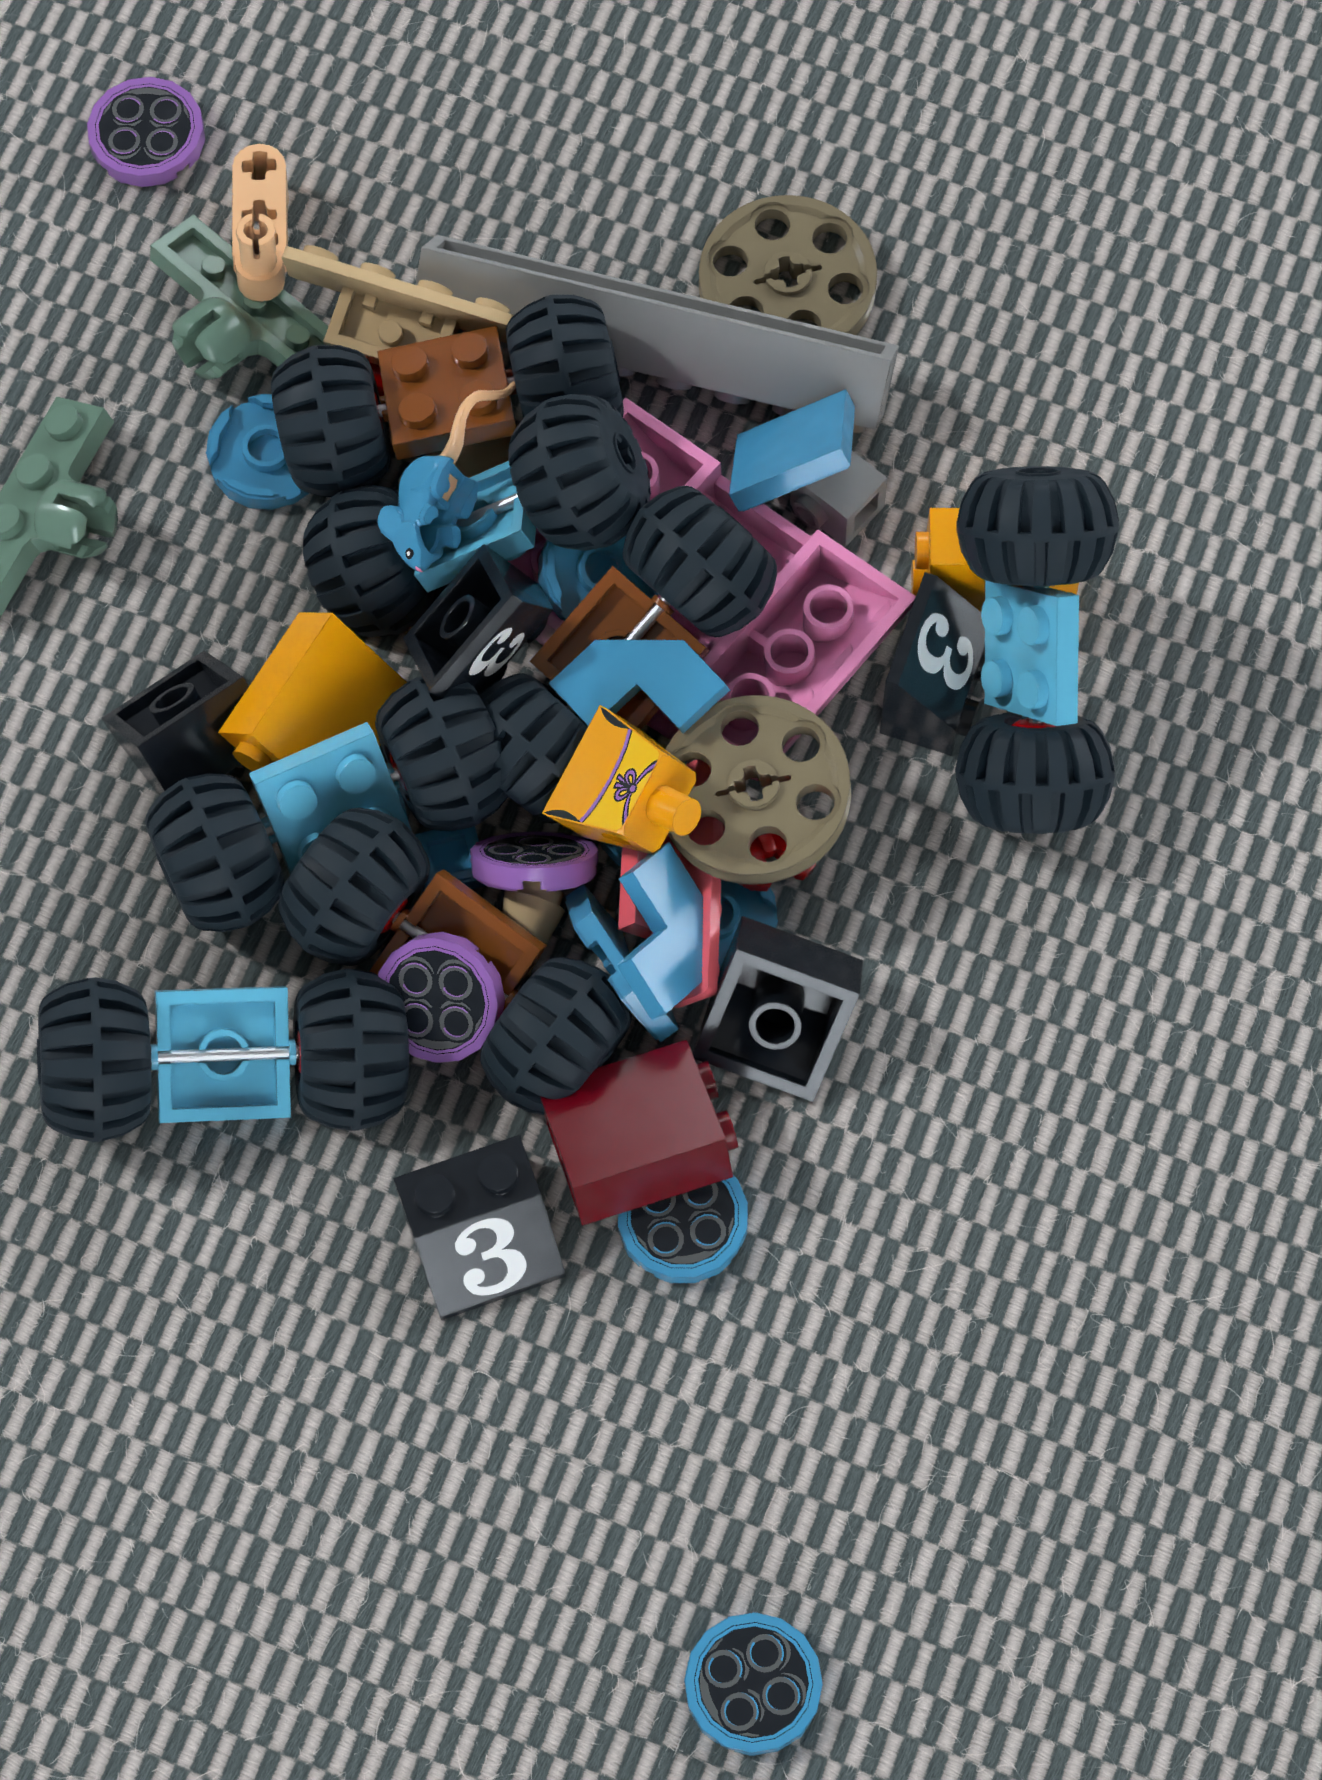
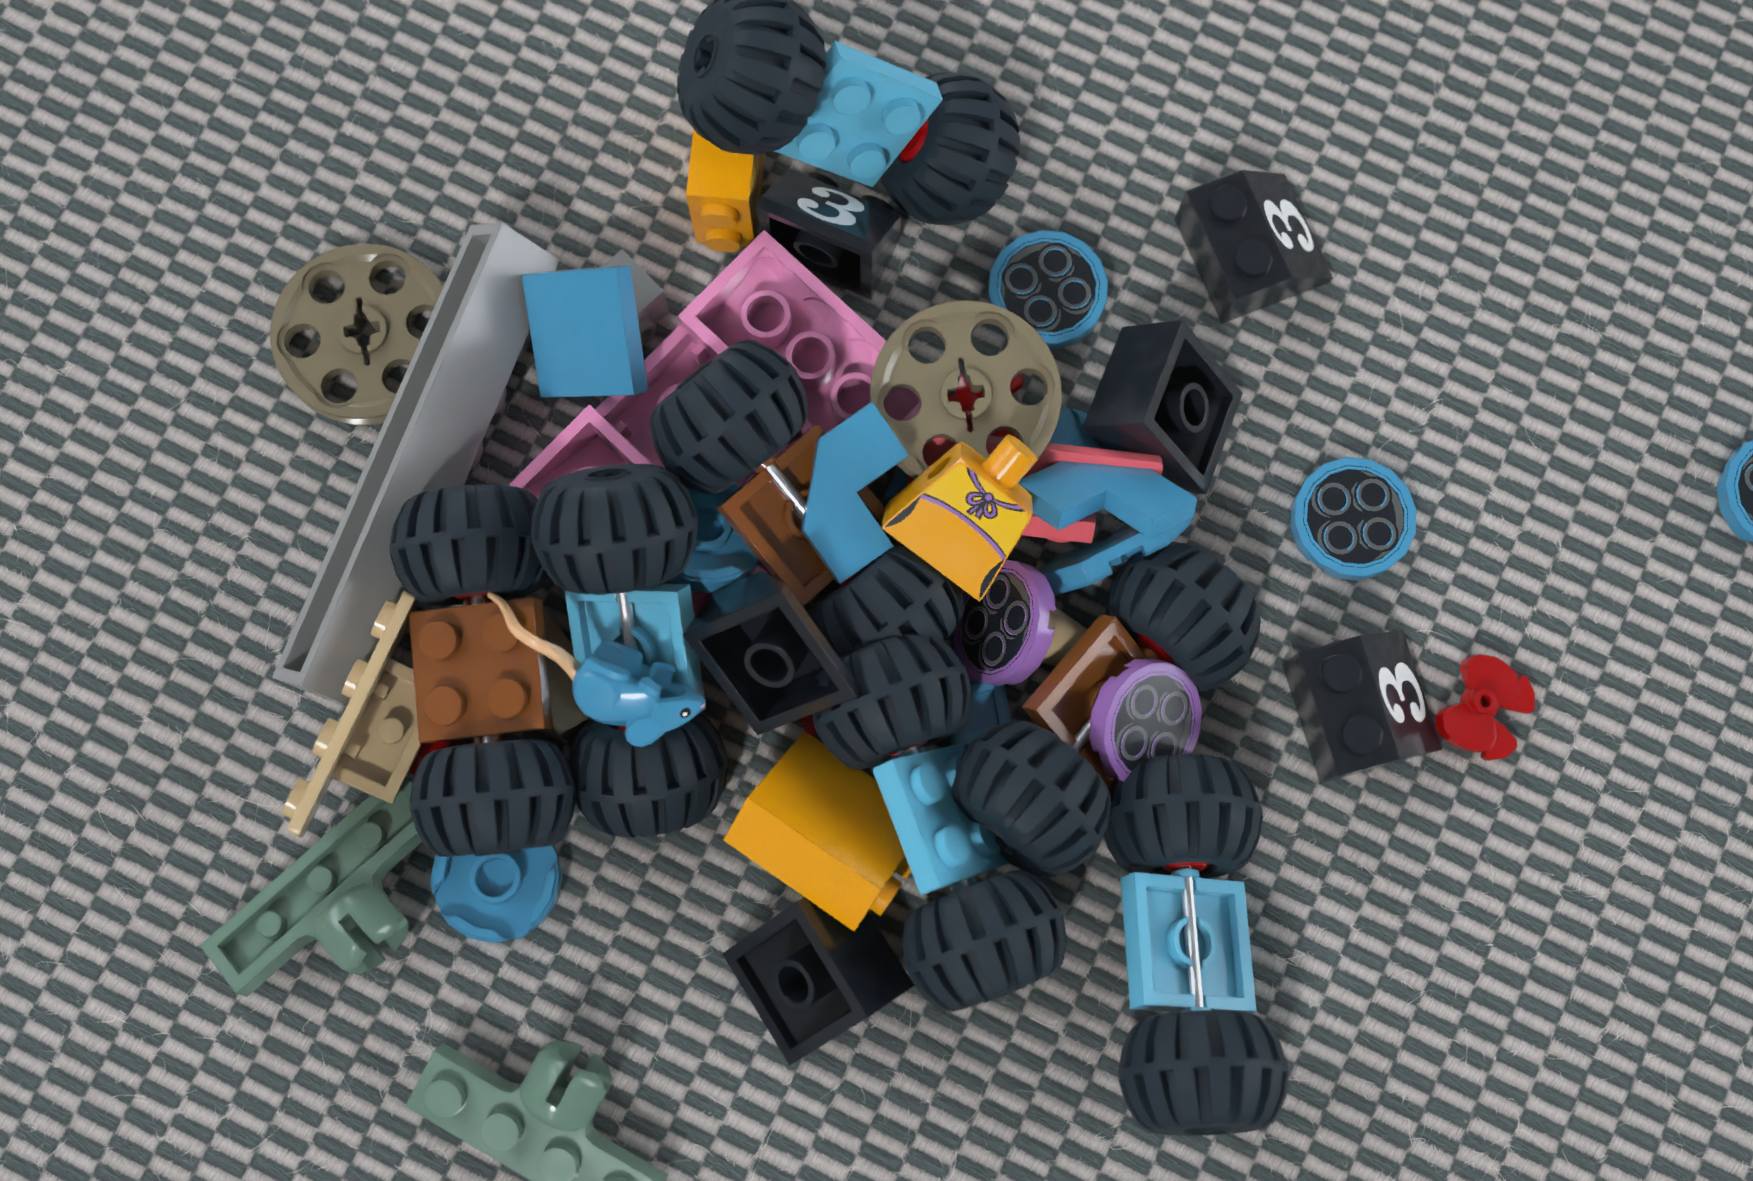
camera: 90 degrees left, 10 degrees up
(146, 131) = (76, 998): tile -> none
(262, 197) = (198, 861): light nougat beam -> none
(510, 1359) = (1471, 722): none -> red piece
(641, 1132) = (1289, 541): dark red brick -> none
(905, 897) = (1050, 285): none -> tile
(980, 1096) = (1250, 242): none -> black slope

